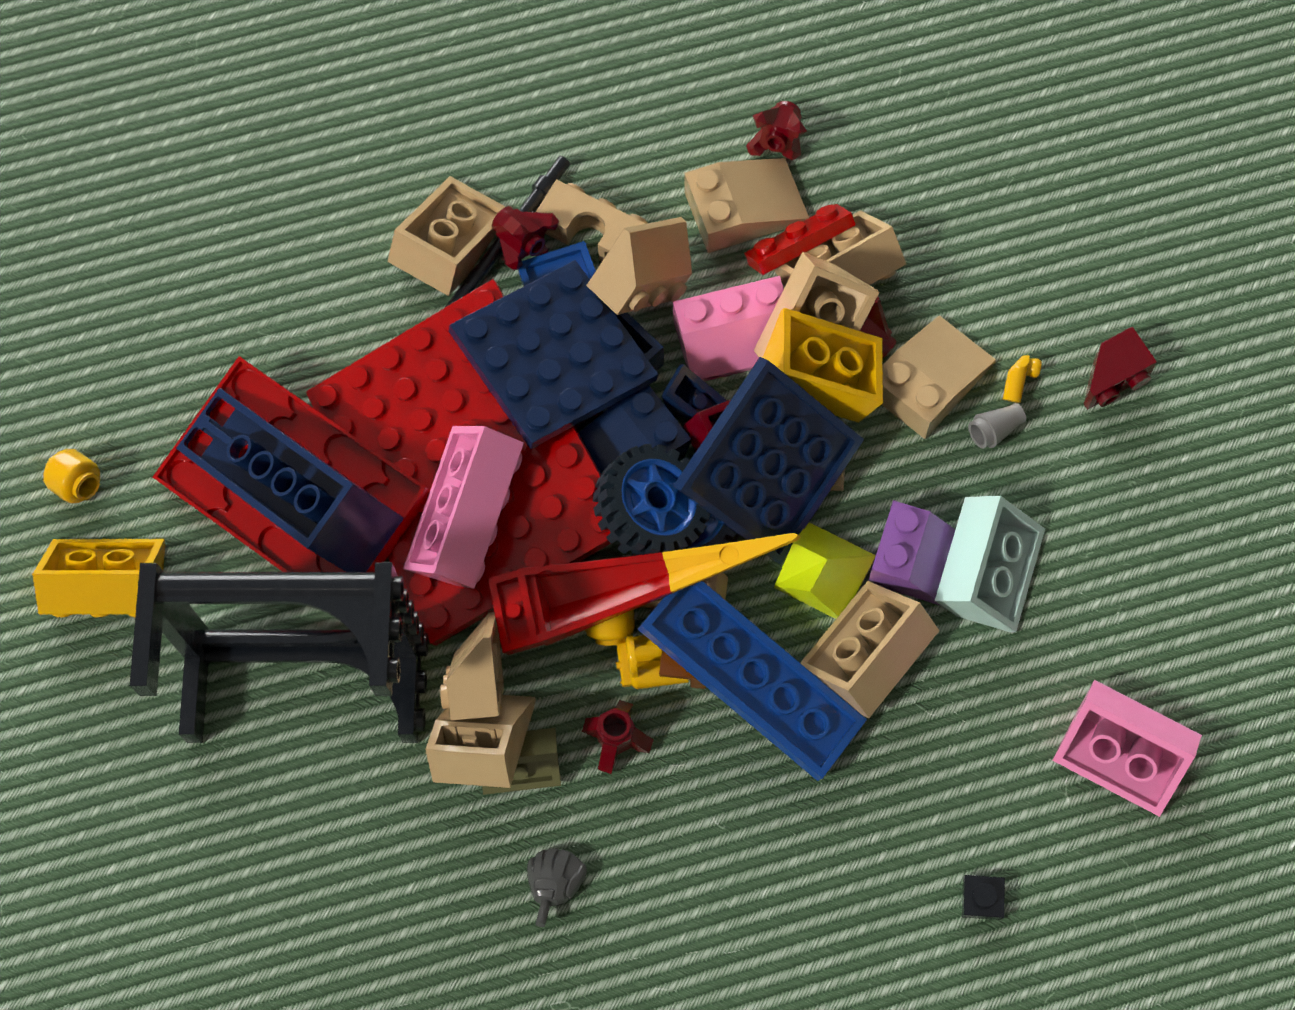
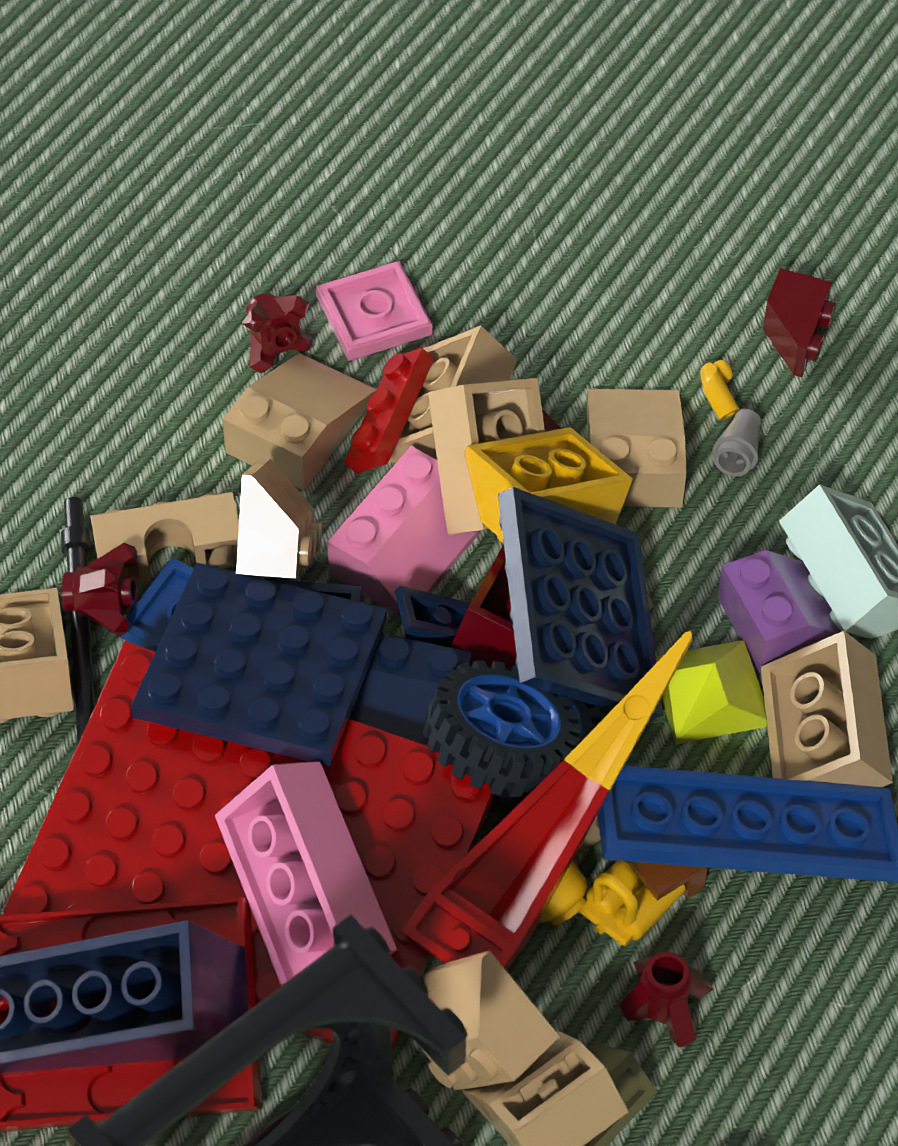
camera: 45 degrees left, 15 degrees down
(857, 162) = (374, 310): none -> bright pink tile

